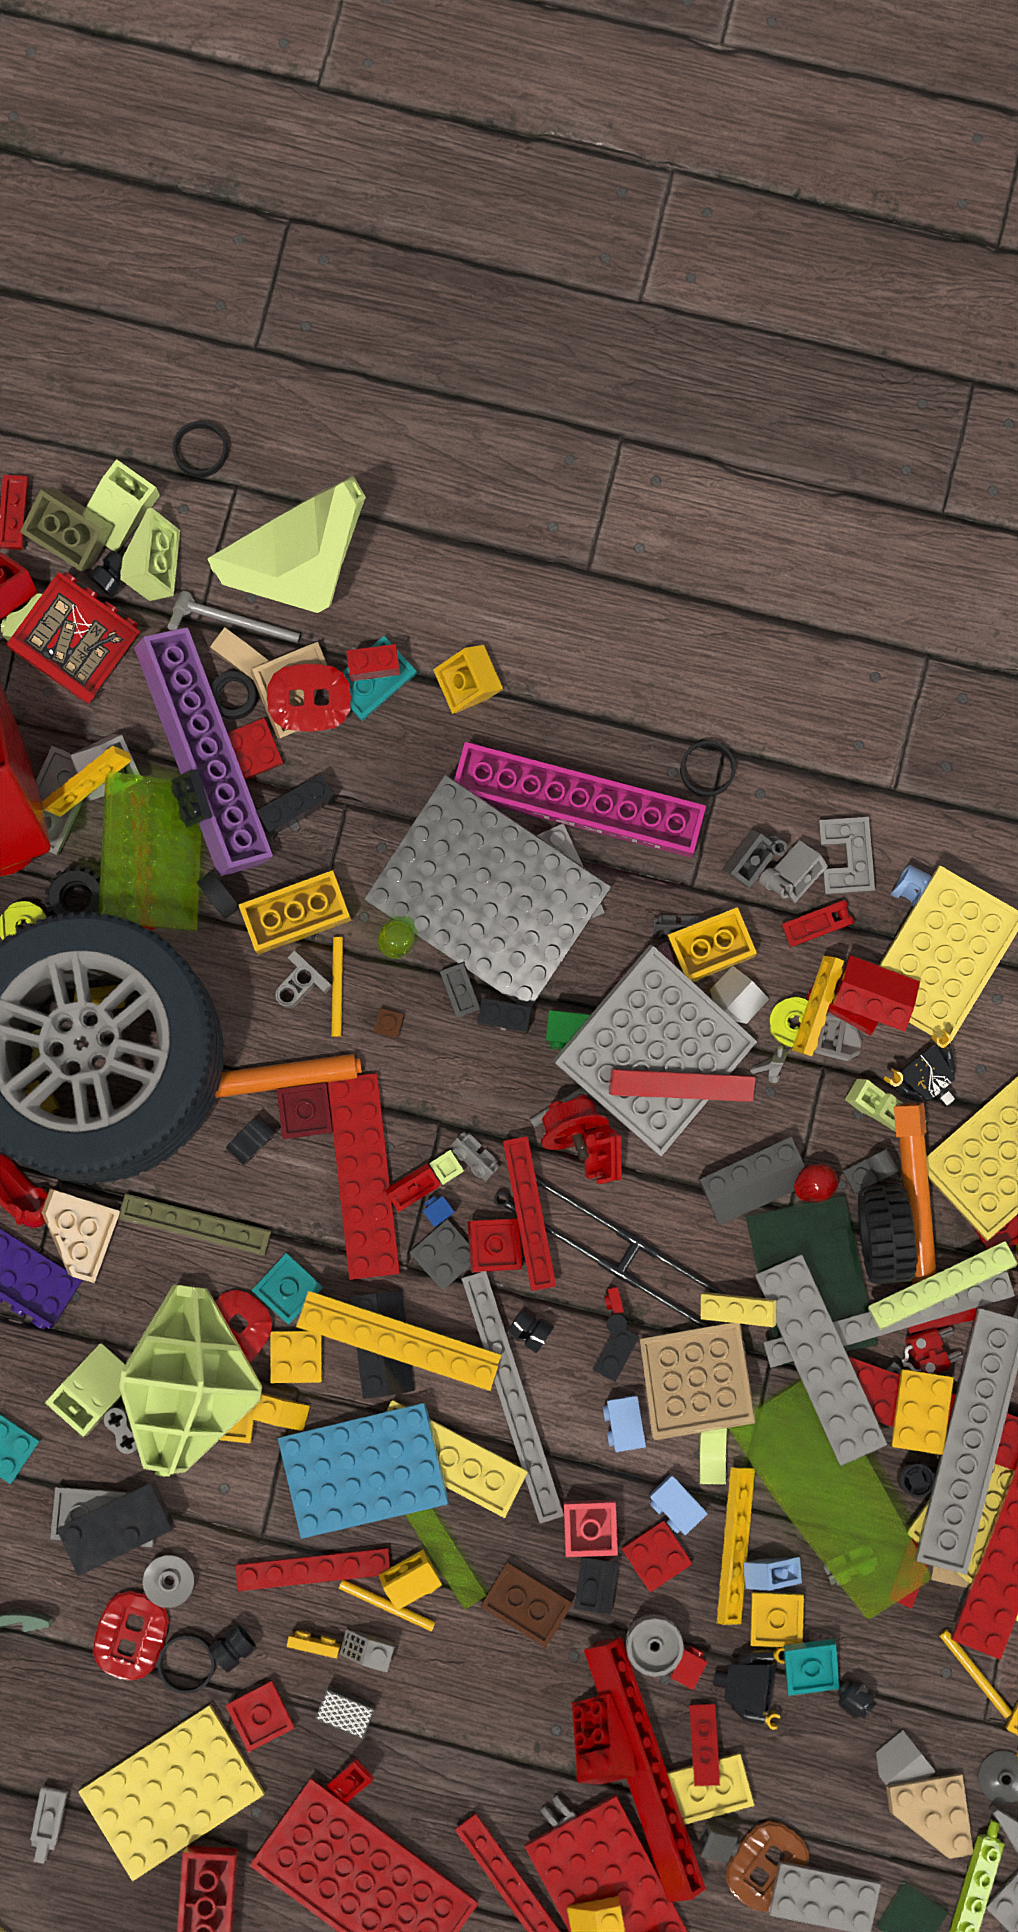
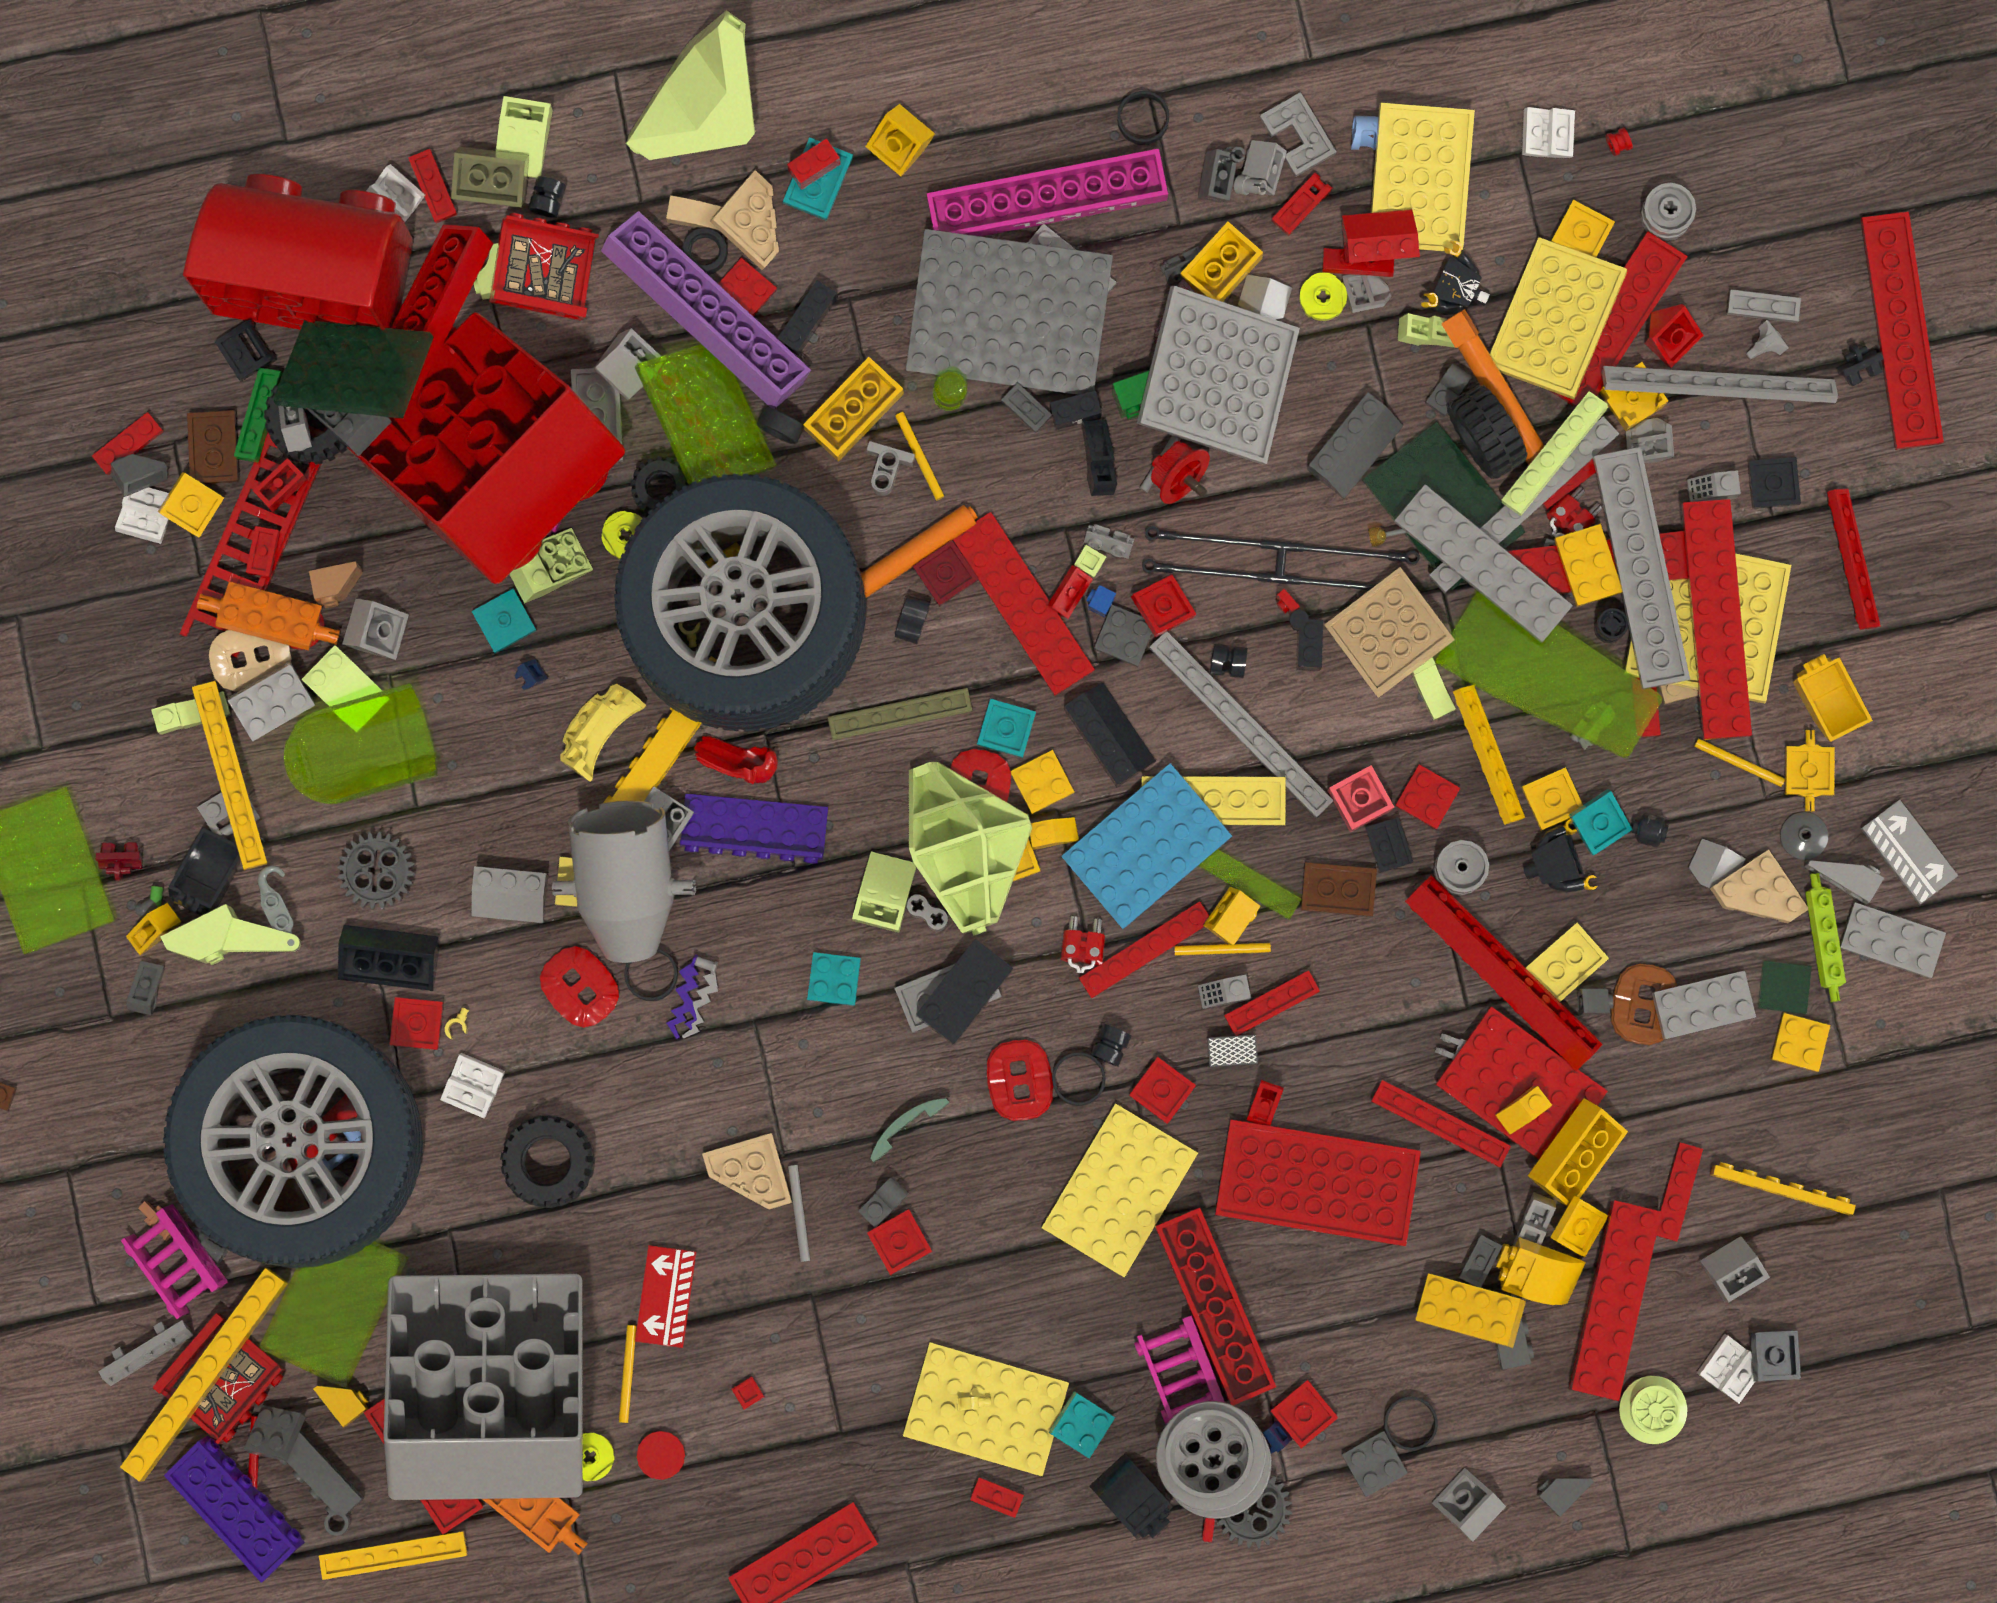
camera: 30 degrees left, 0 degrees up
(48, 1821) = (1028, 1264): light grey hinge -> none
(79, 1232) = (807, 765): tan plate -> none
(86, 781) = (622, 380): yellow plate -> none
(152, 557) = (577, 167): yellowish green slope -> none
(162, 1593) = (1031, 1005): light grey dish -> none
(186, 604) = (624, 193): light grey bar -> none
(191, 798) = (718, 353): black plate -> none
(196, 425) = (558, 31): black tyre -> none
(254, 1536) = (1083, 946): none -> red piece
(303, 1641) = (1187, 1006): yellow plate -> none
(308, 679) = (781, 235): red piece -> none
(388, 1023) = (979, 465): reddish brown plate -> none
(398, 1340) = (1123, 721): yellow plate -> none
(407, 1684) = (1272, 1003): none -> red plate
(504, 1072) = (1099, 458): none -> black slope
(529, 1213) = (1179, 564): red plate -> none
(601, 1742) = (1457, 967): red slope -> none
(604, 1154) = (1220, 484): red hinge -> none
(625, 1423) = (1346, 700): light blue brick -> none
(677, 1505) = (1423, 745): light blue brick -> none
(681, 1085) = (1254, 393): tile -> none
(690, 1667) = (1499, 873): red brick -> none
(704, 1745) = (1544, 929): red plate -> none
(734, 1279) = (1378, 535): none -> clear yellow hinge
(738, 1309) = (1394, 556): light yellow plate -> none
(772, 1573) = (1530, 762): light blue slope -> none
(773, 1064) = (1323, 341): light grey piece -> none
(816, 1183) = (1408, 421): red hair -> none
(817, 1006) = (1336, 271): yellow plate -> none

